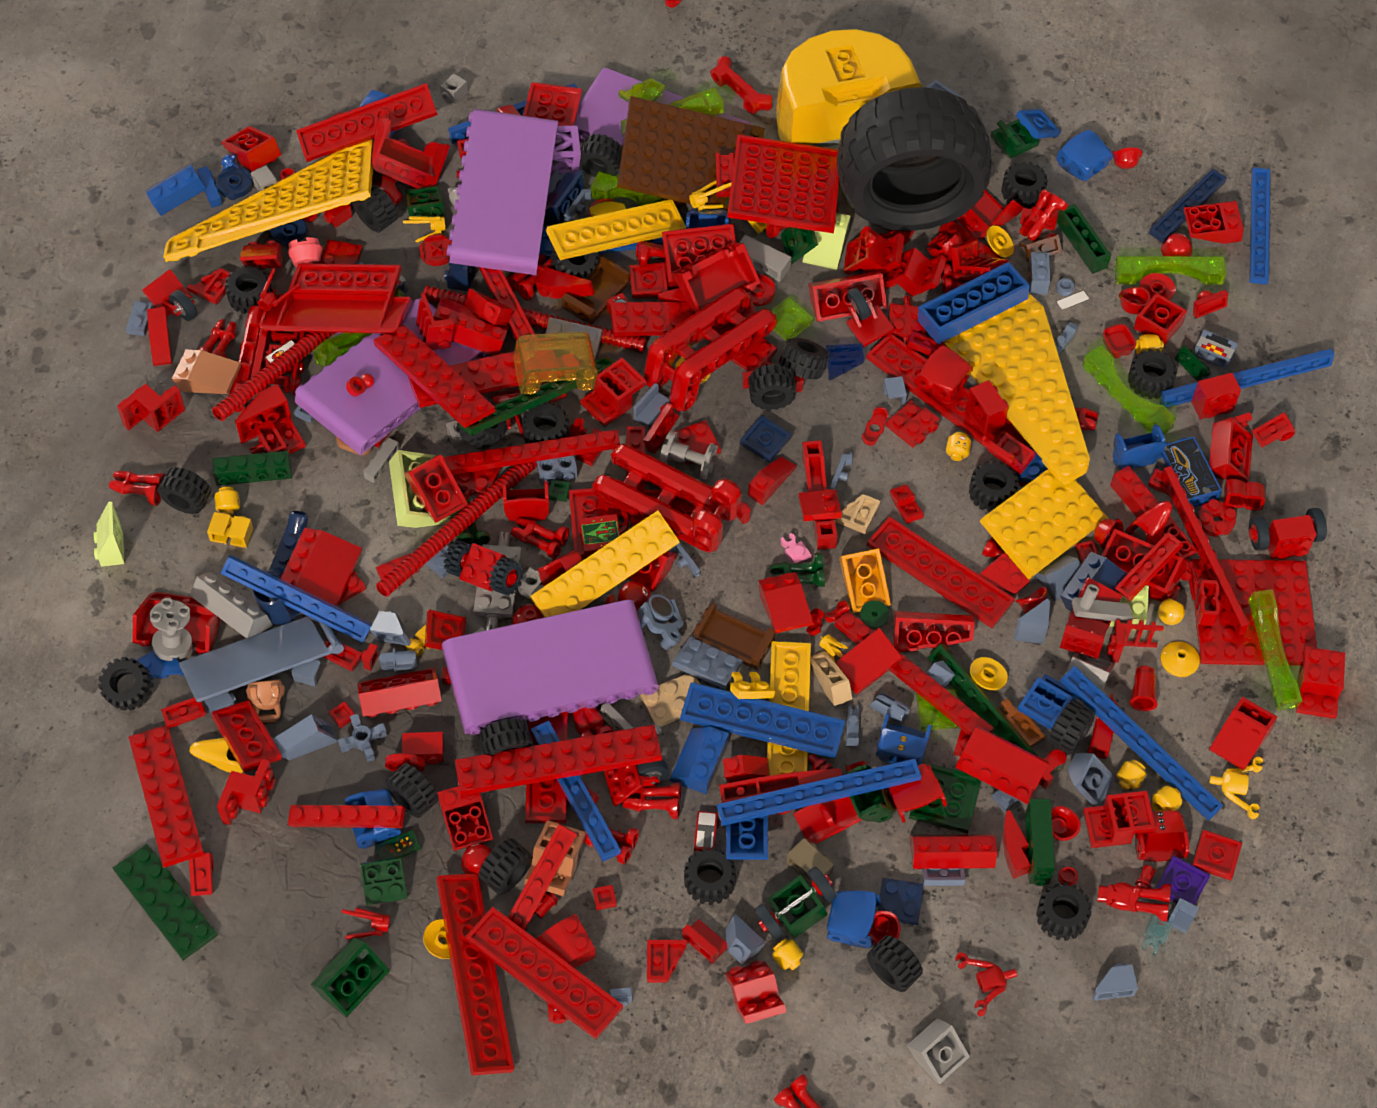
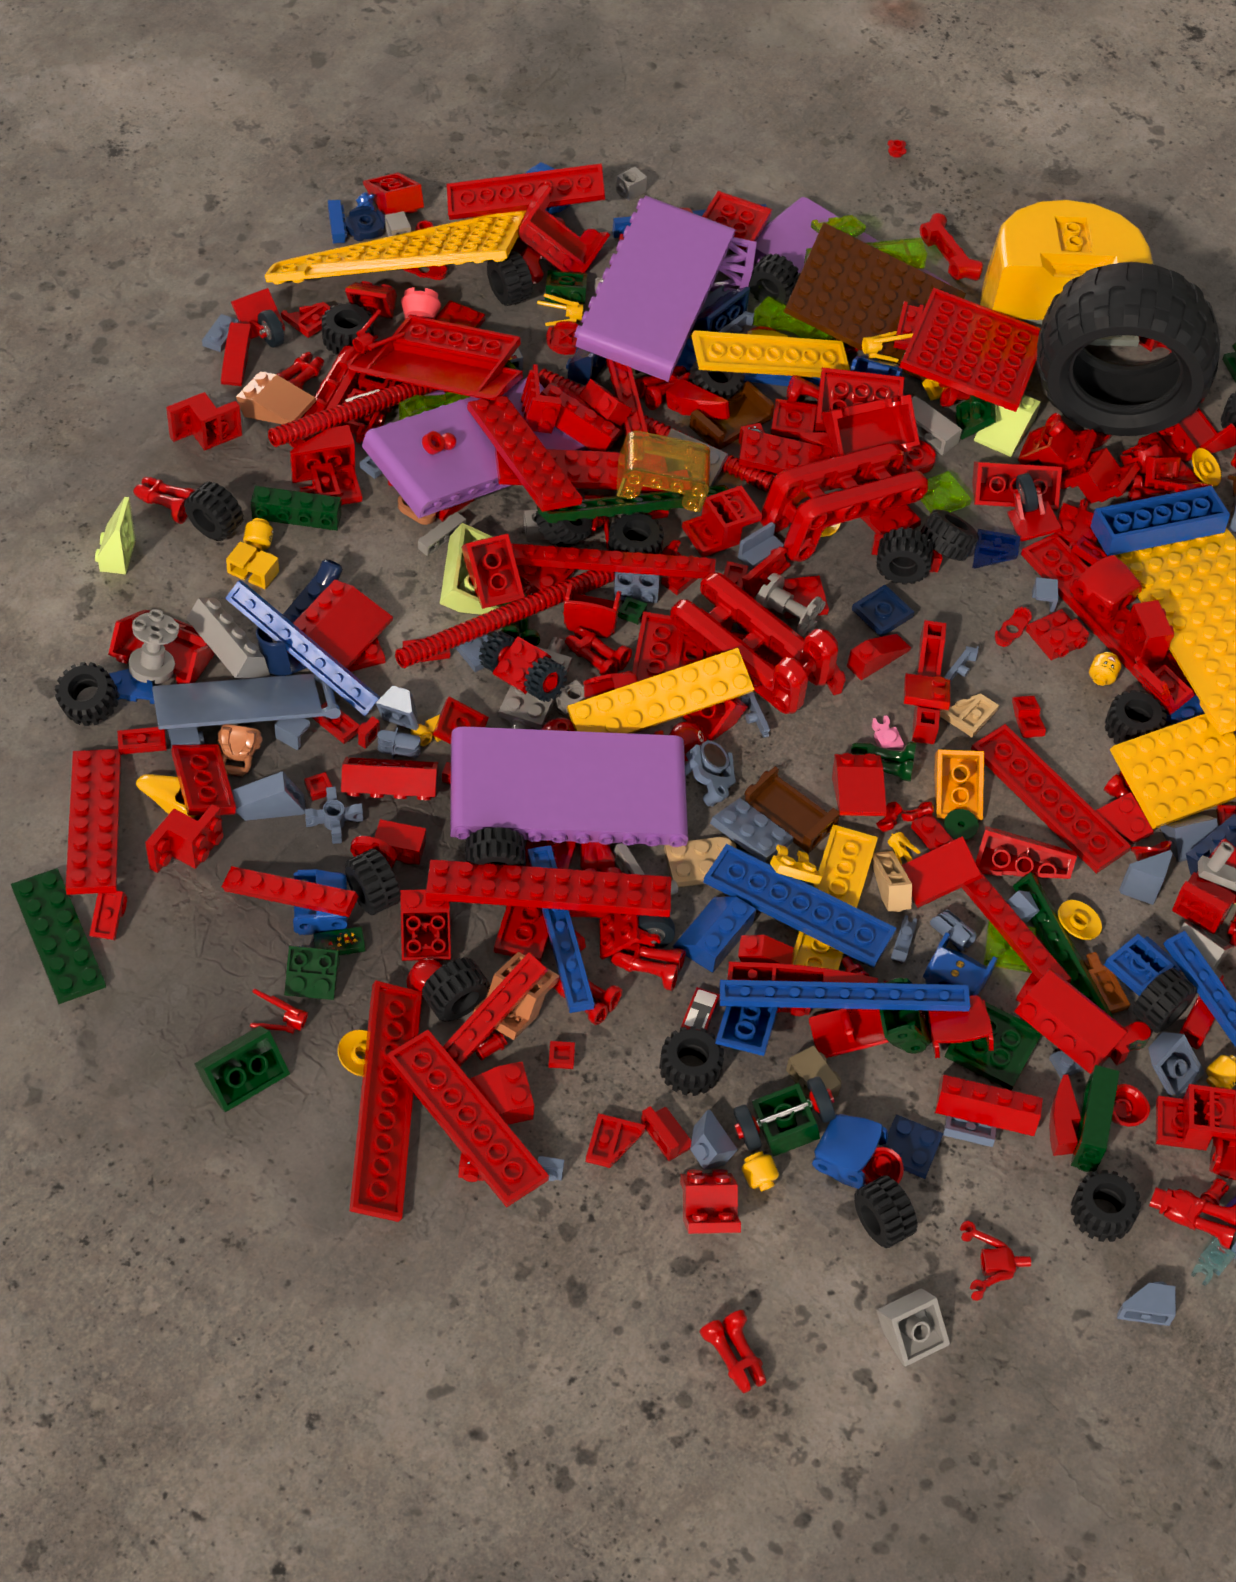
camera: 10 degrees right, 5 degrees down
(175, 189) = (299, 215): blue slope -> none
(282, 233) = (407, 278): dark blue dish -> none
(338, 215) = (467, 276): red brick -> none
(598, 532) = (664, 658): tile -> none
(1068, 875) = (1121, 1165): red plate -> none

